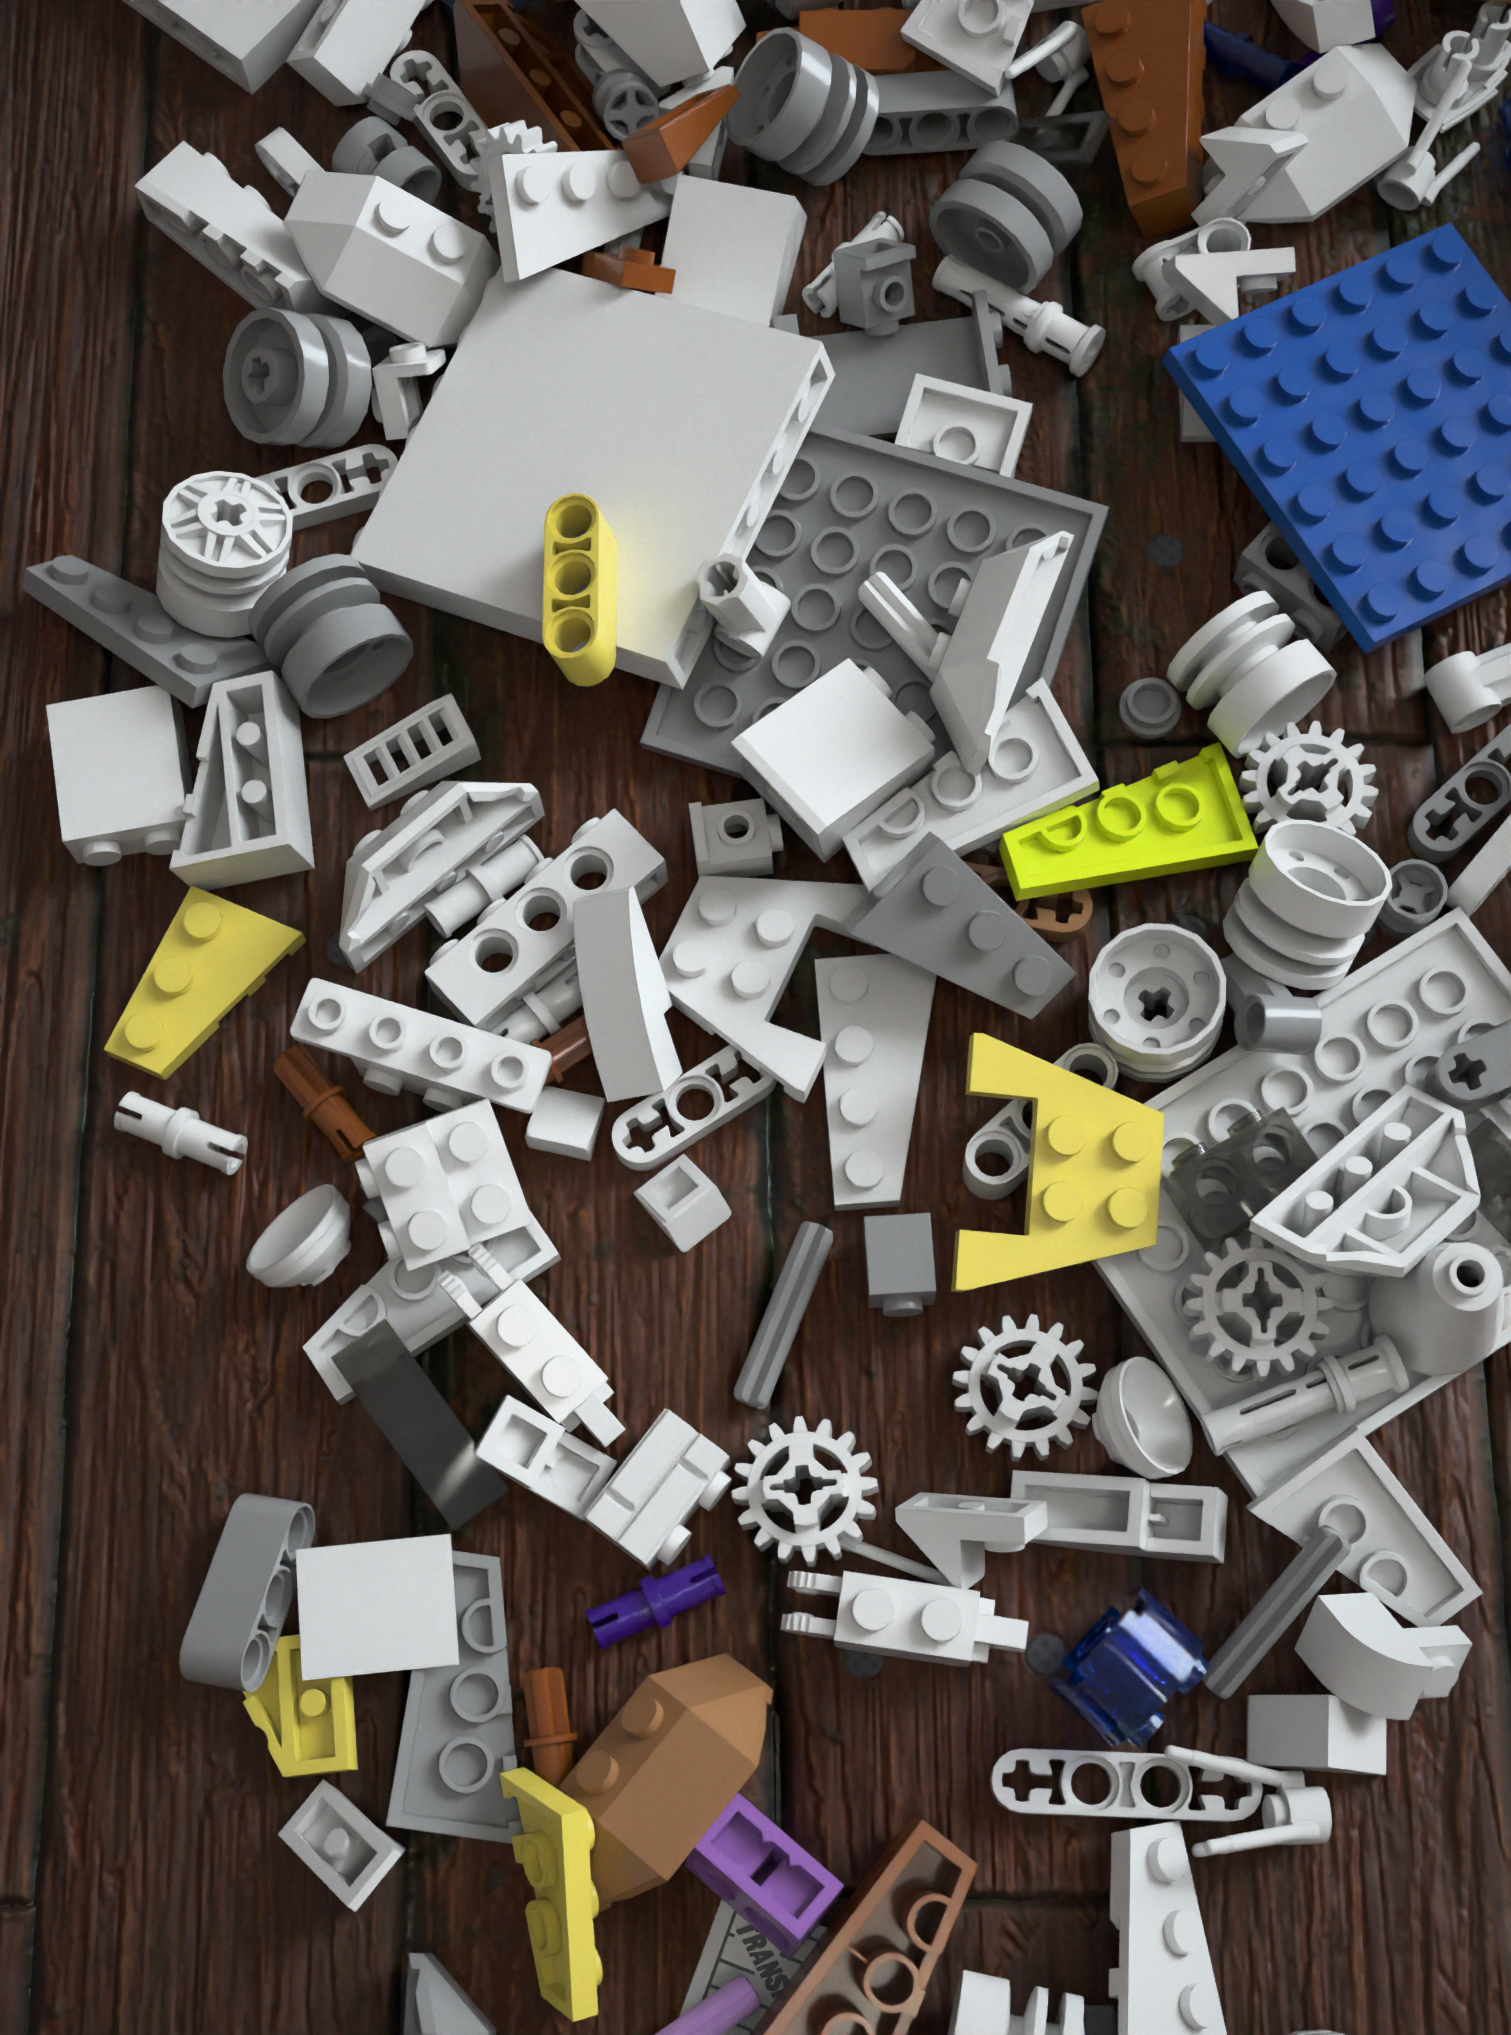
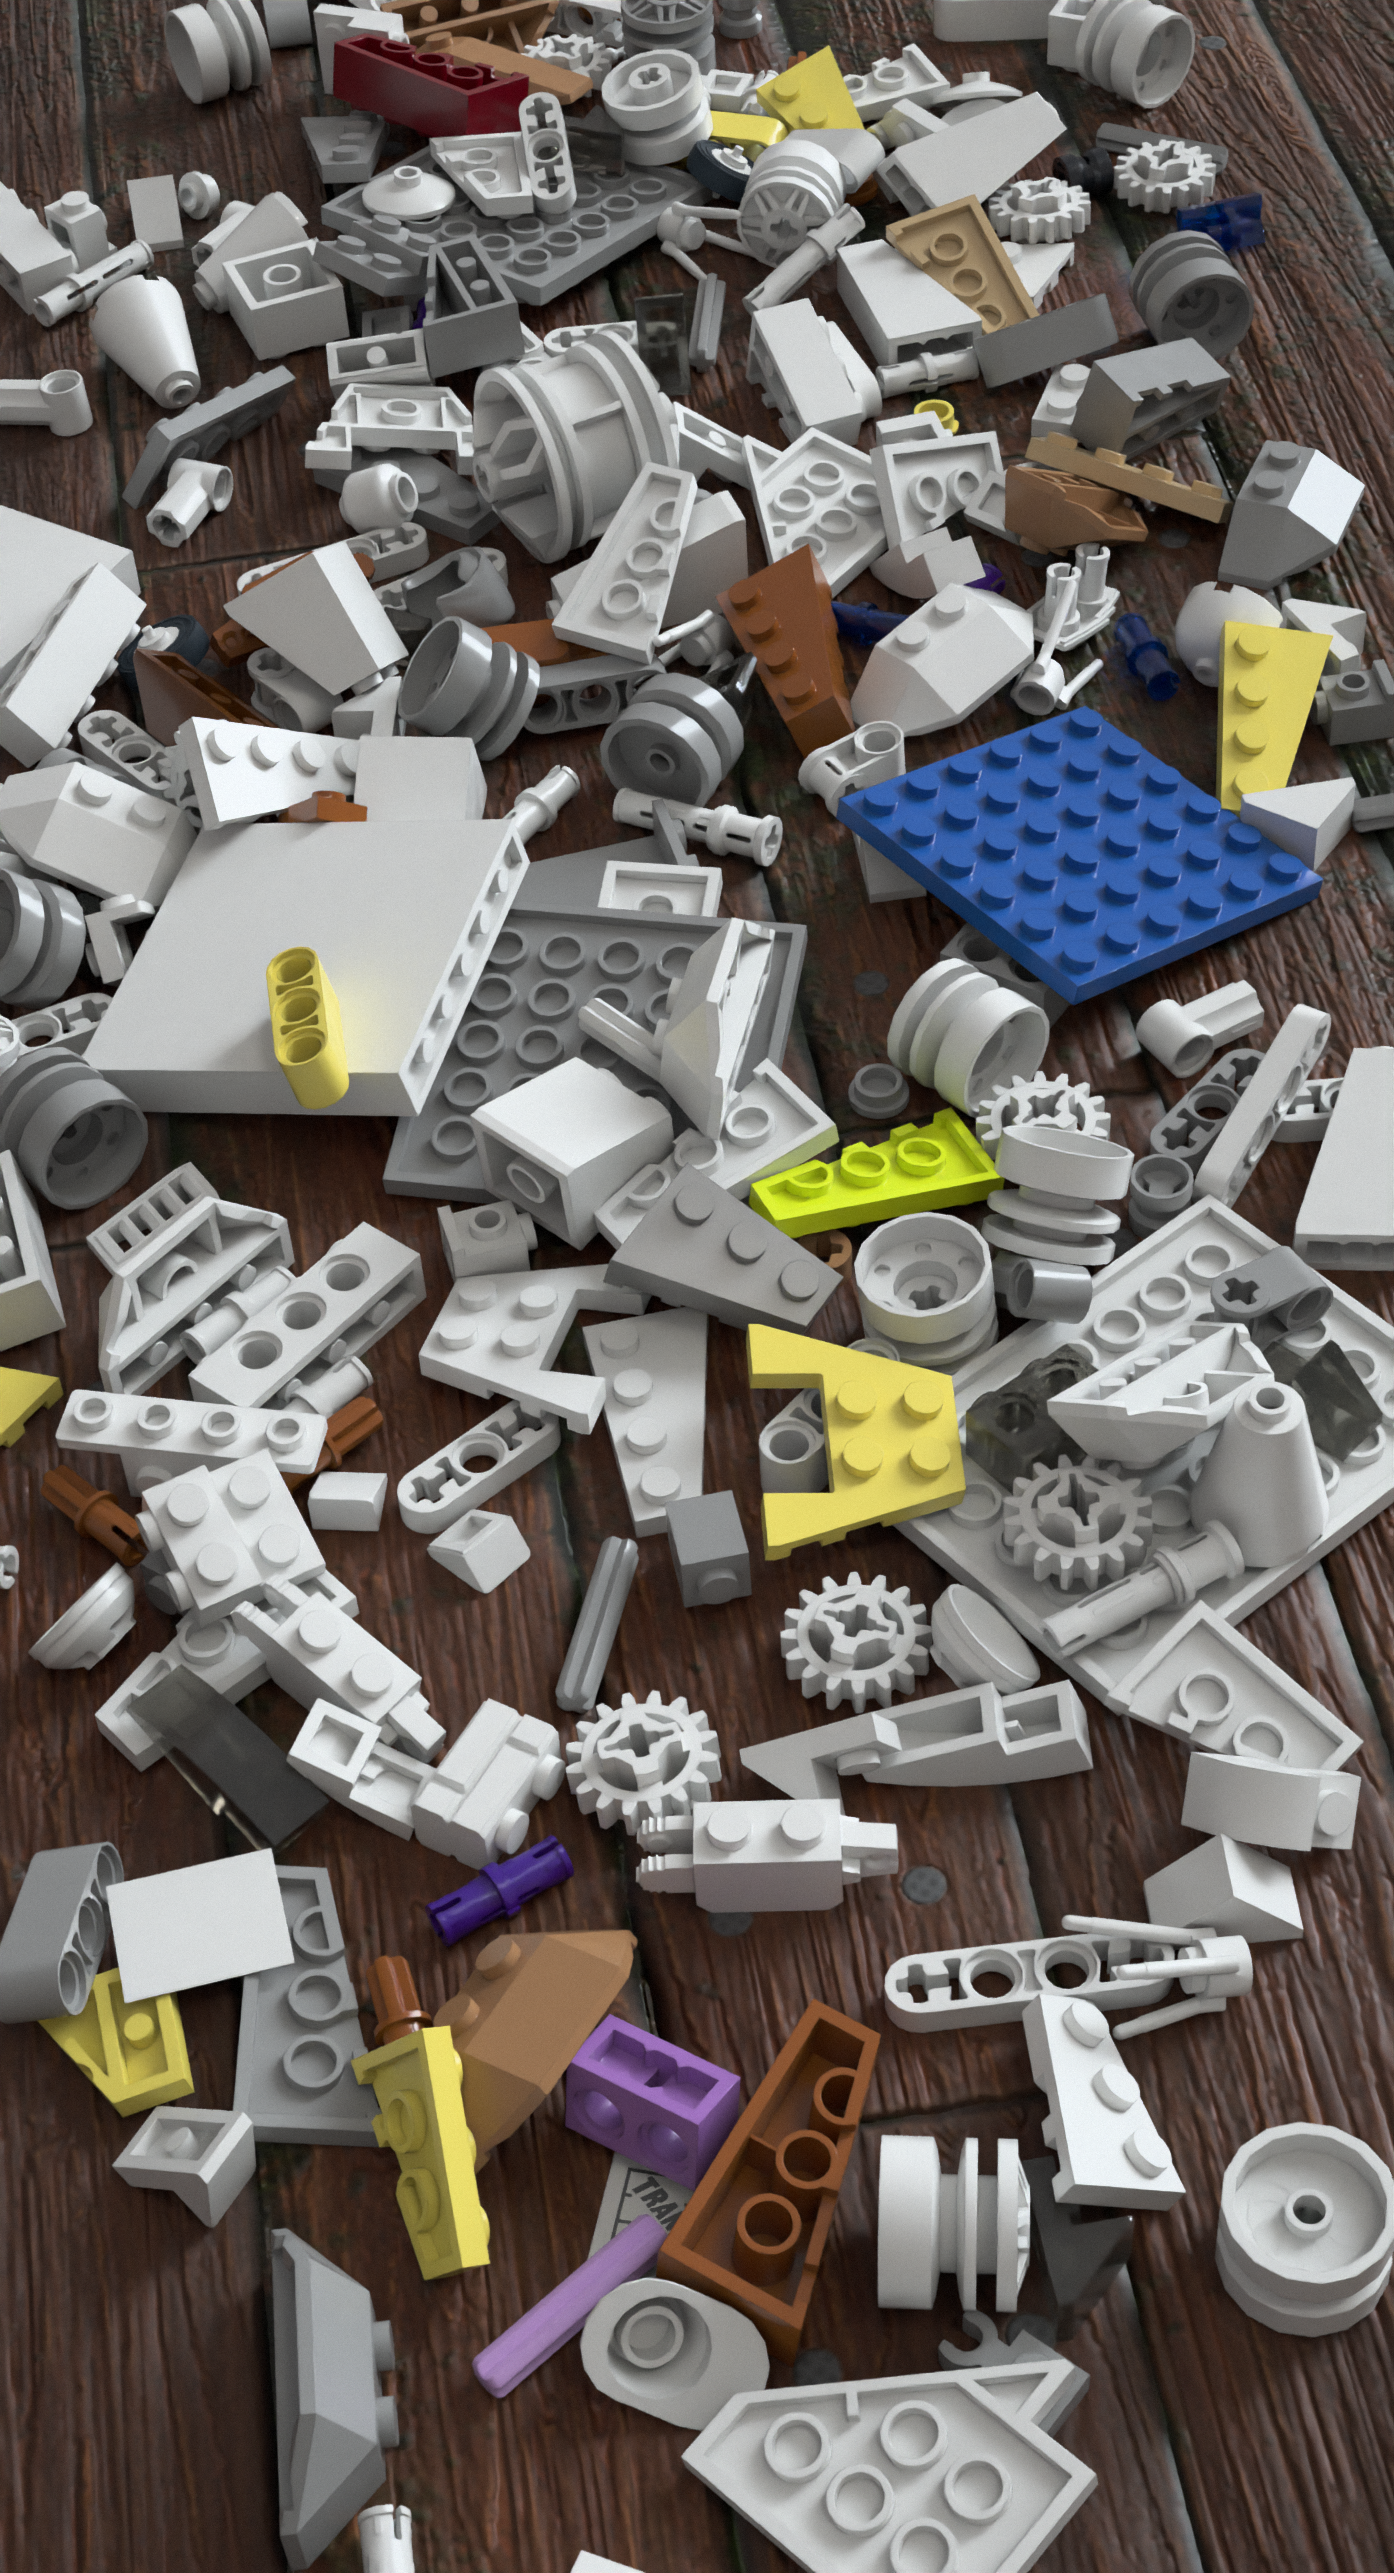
camera: 10 degrees left, 25 degrees down
(390, 99) = (81, 737): light grey plate -> none
(623, 996) = (393, 1365): white slope -> none
(637, 109) = (315, 713): light grey wheel -> none
(673, 138) = (352, 711): dark orange slope -> none
(742, 604) = (474, 1038): white piece -> none
(875, 284) = (558, 811): light grey brick -> none
(1130, 1669) = (1008, 1851): clear blue brick -> none
(1212, 278) = (877, 751): white slope -> none
(1248, 164) = (893, 678): white slope -> none
(1276, 1611) = (1152, 1787): light grey axle -> none

